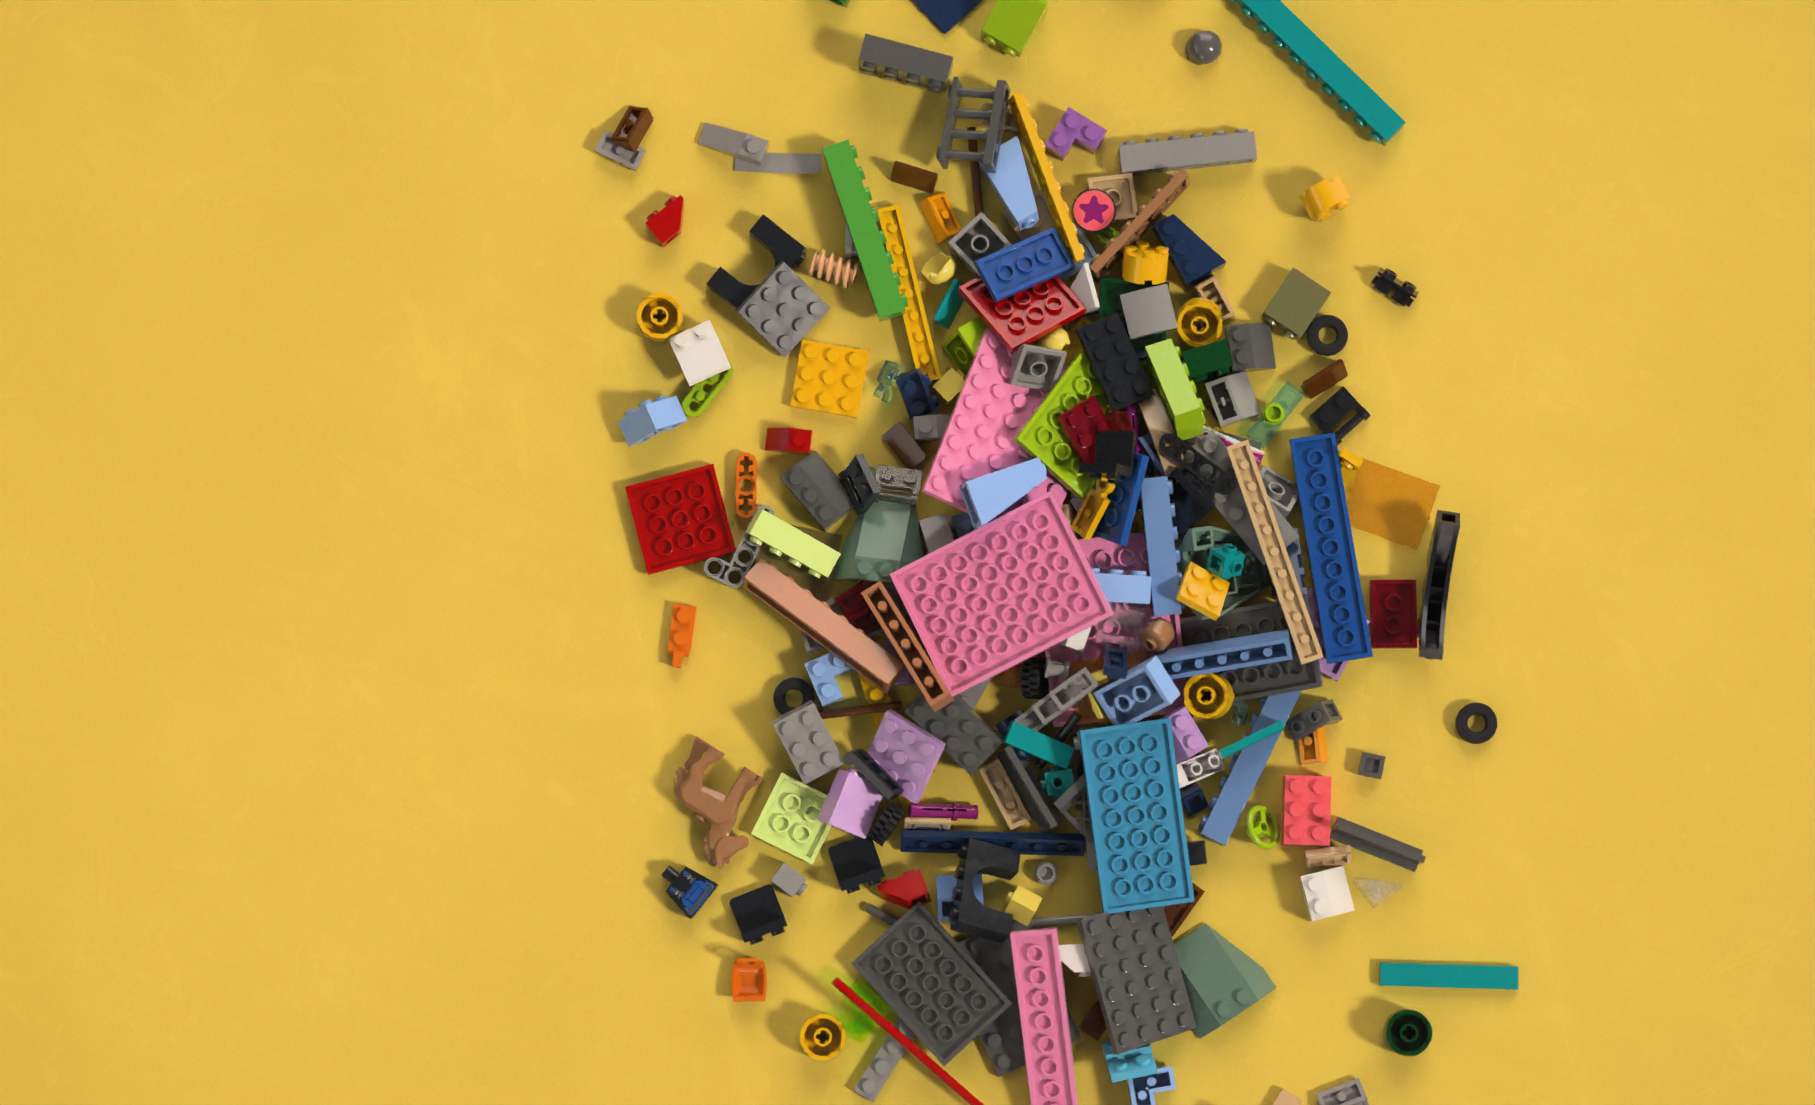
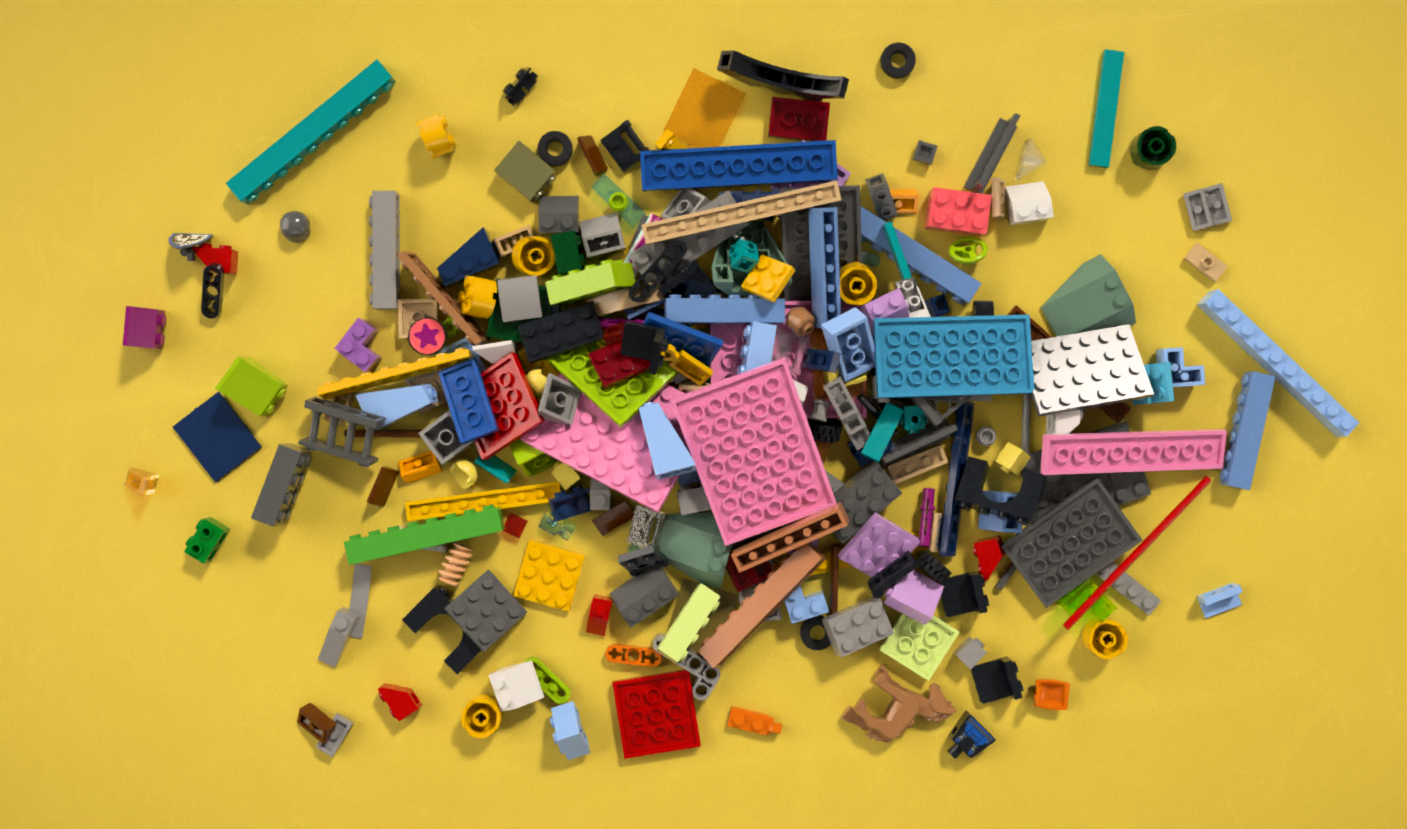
camera: 85 degrees left, 5 degrees up
(884, 333) = (515, 525): none -> clear red plate

